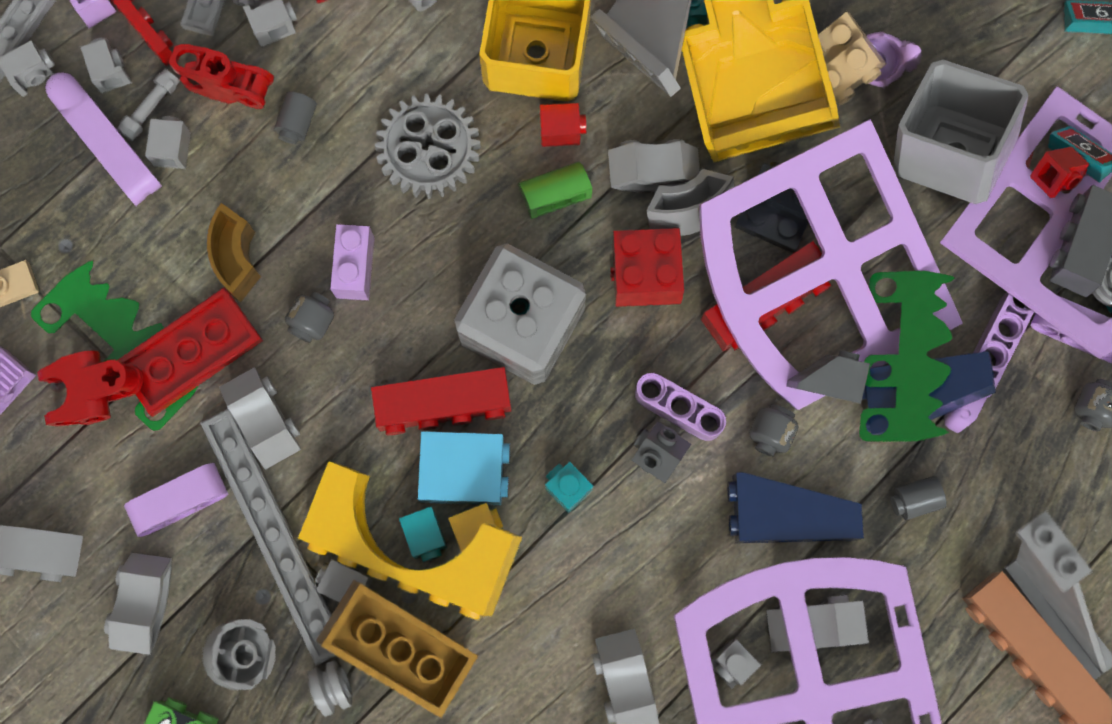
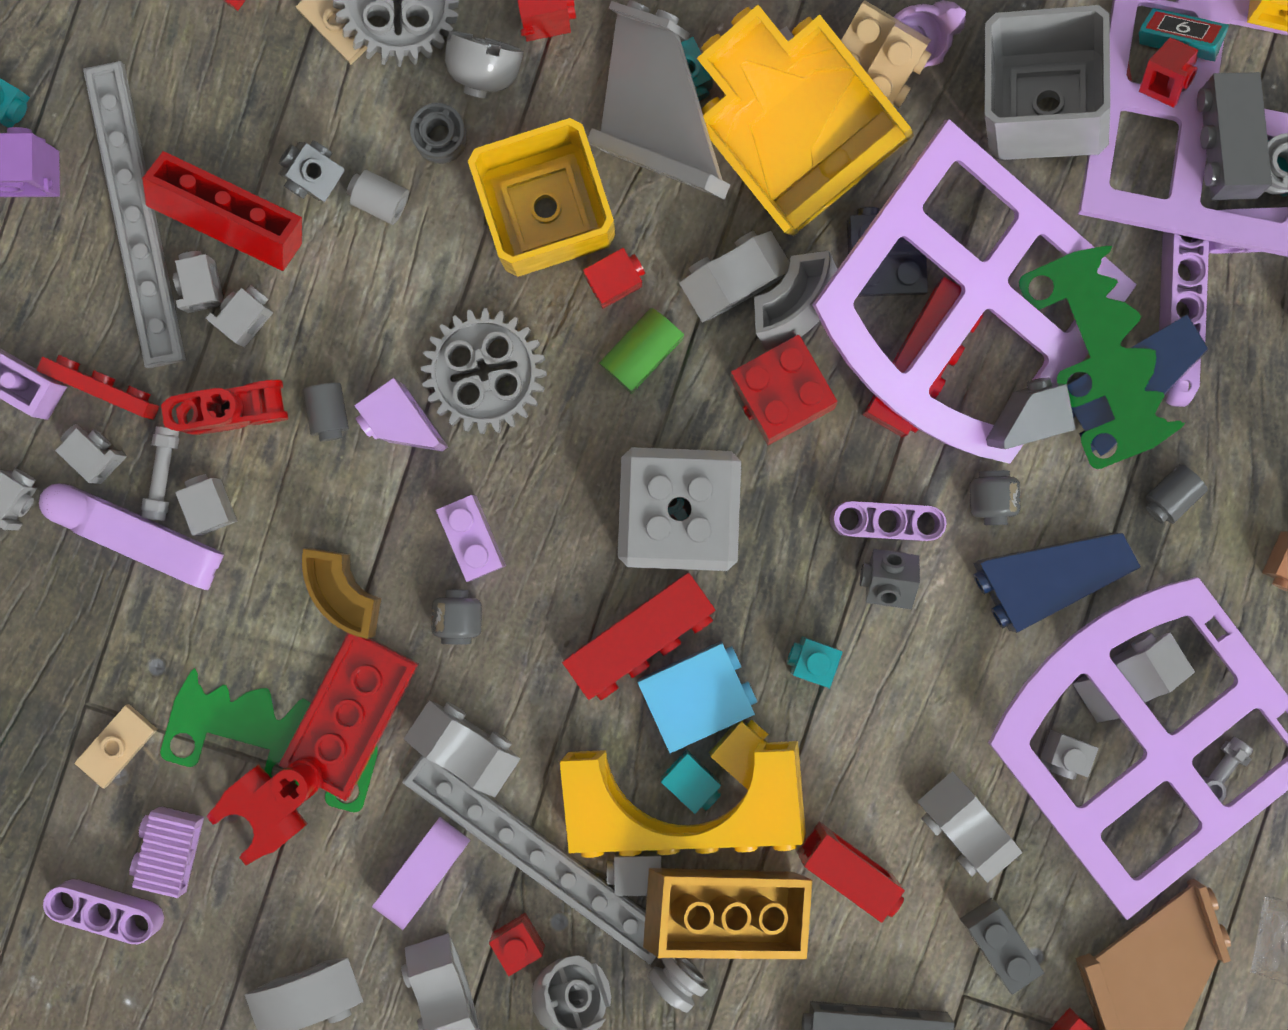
camera: 25 degrees left, 10 degrees up
(219, 592) = (517, 944): none -> red brick
(343, 144) = (397, 418): none -> lavender slope
(512, 667) = (851, 873): none -> red window

